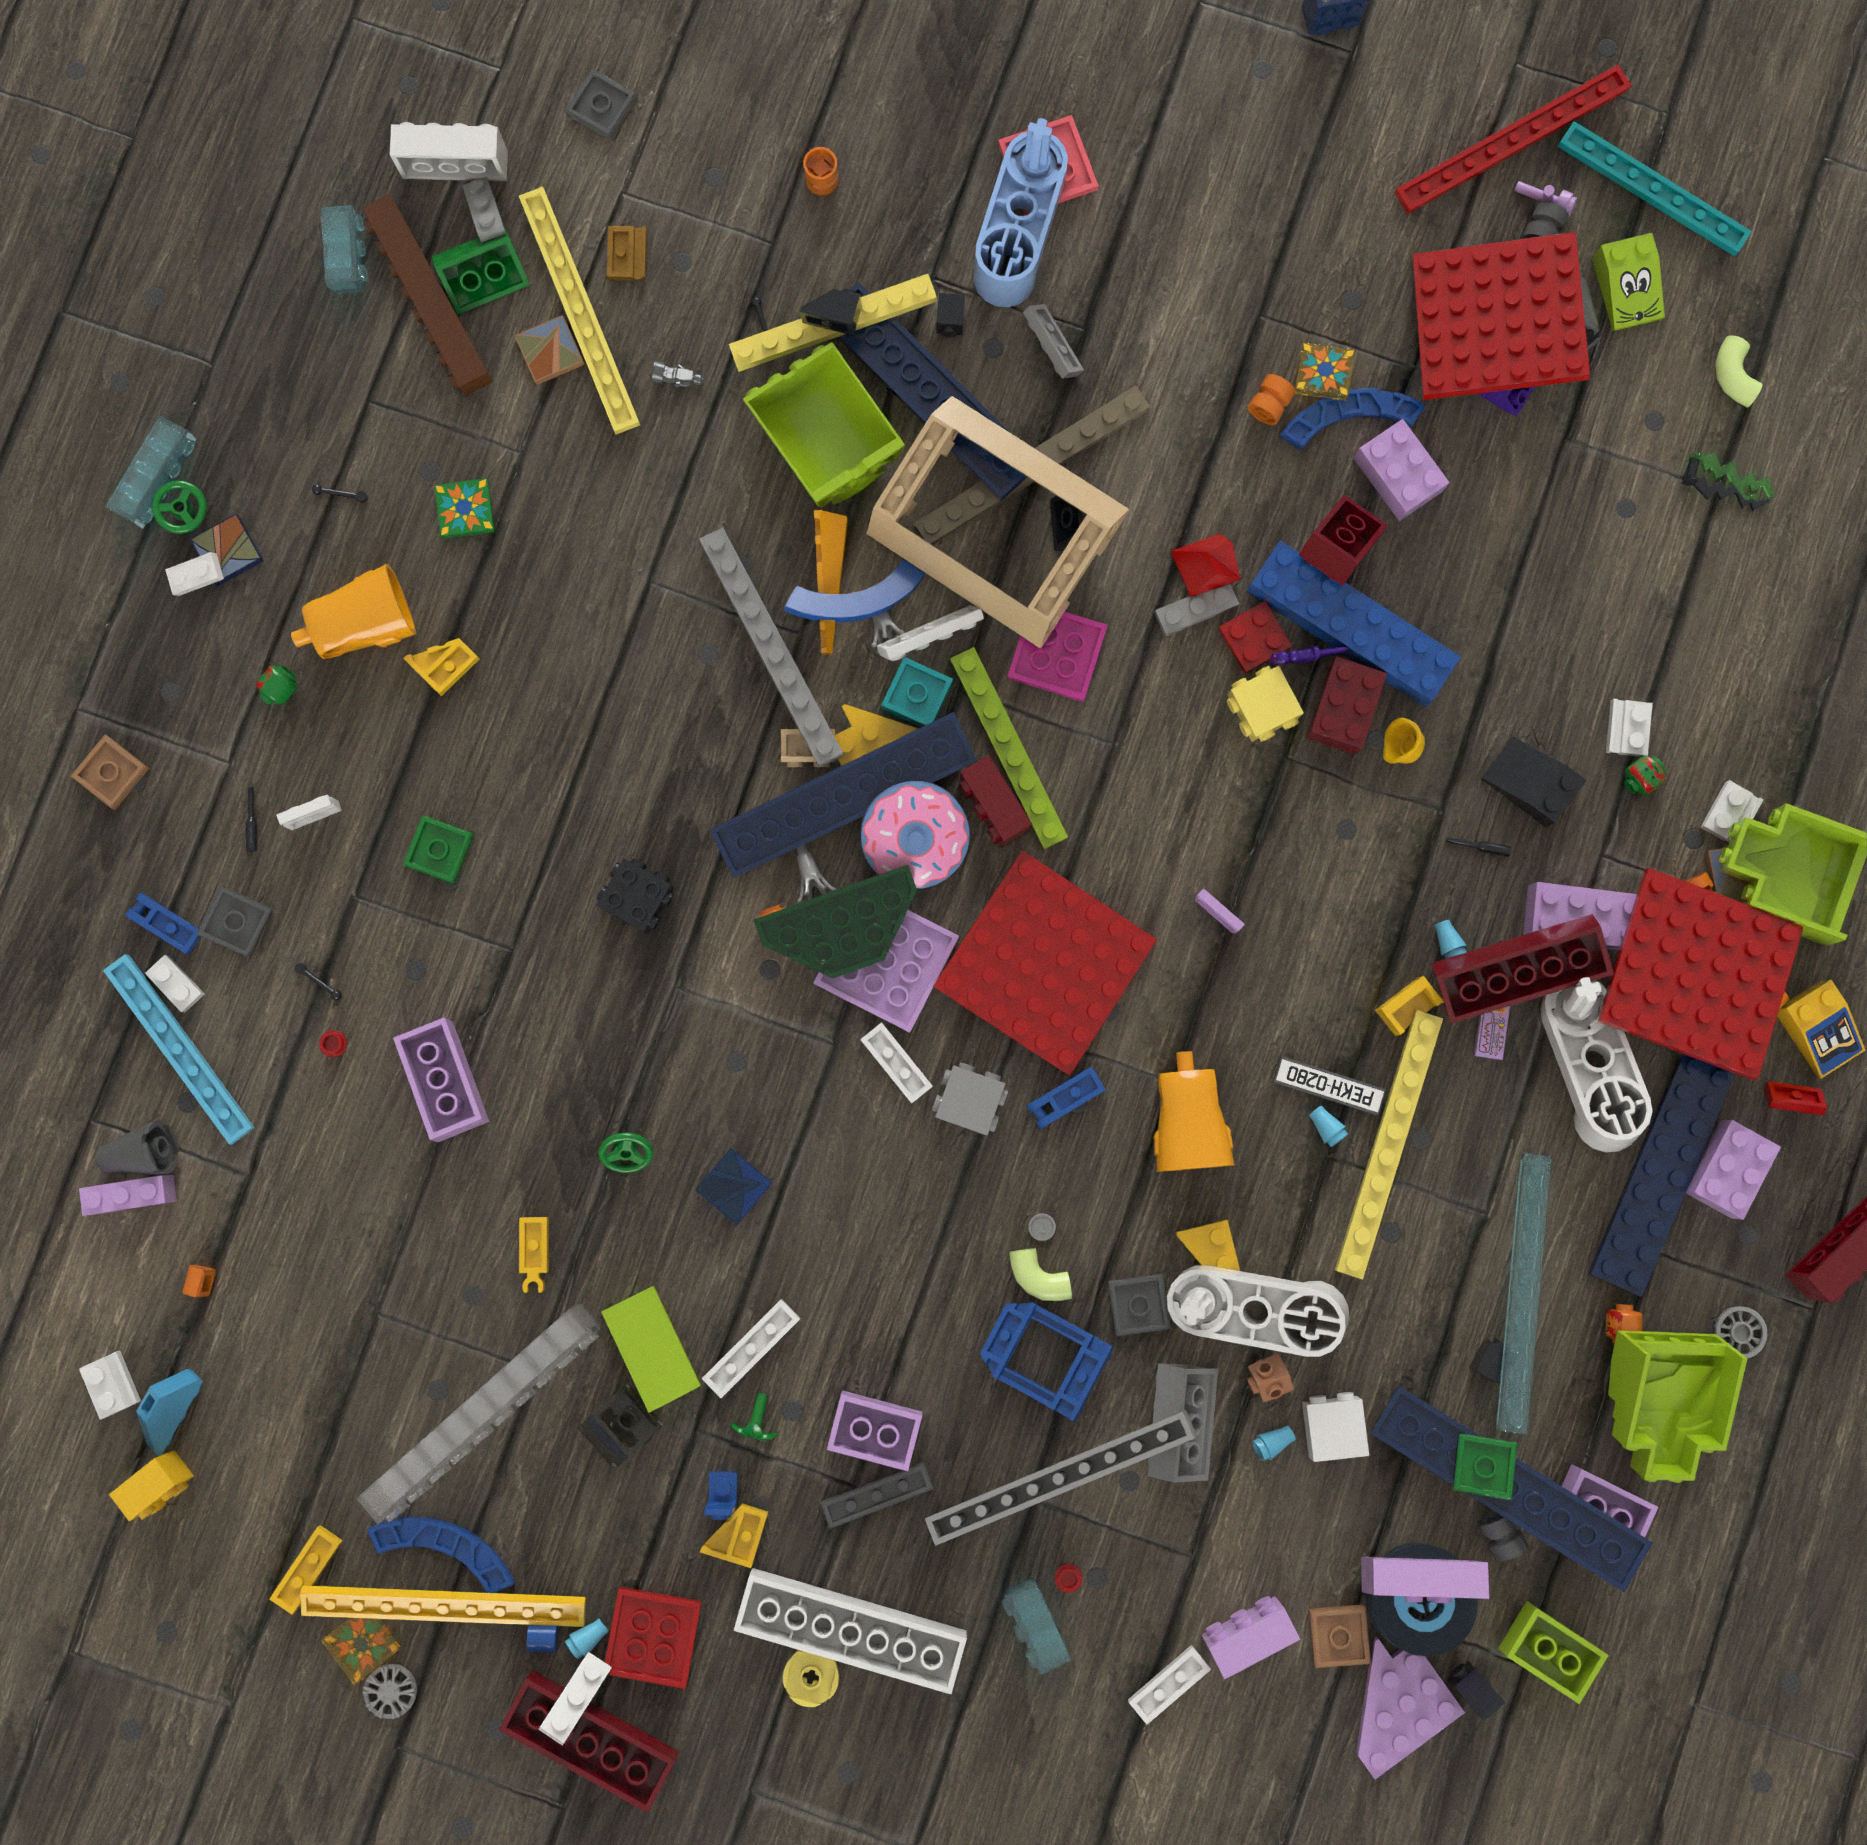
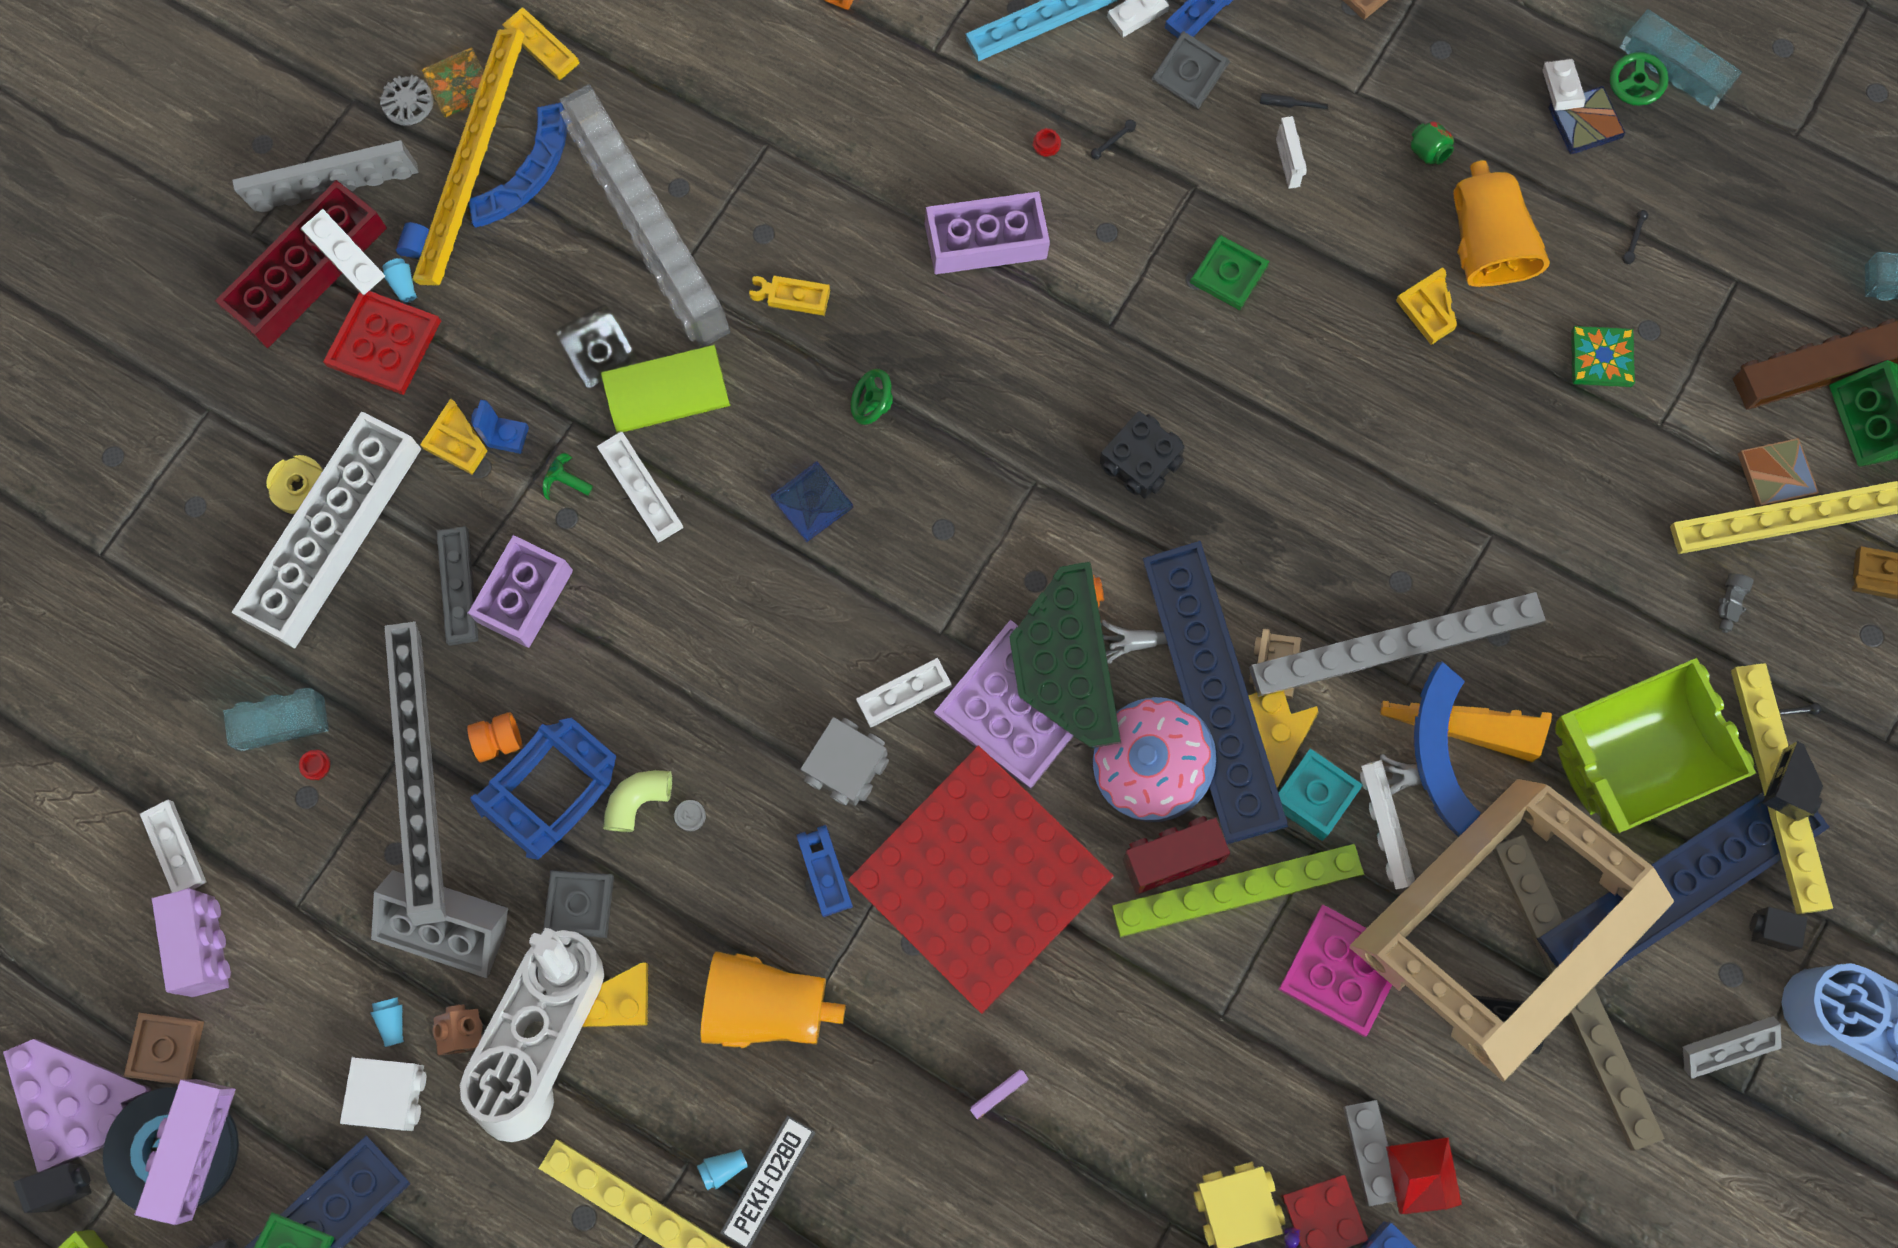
camera: 110 degrees right, 10 degrees down
(497, 1750) = (312, 178): none -> light grey plate
(1010, 1415) = (498, 736): none -> orange wheel

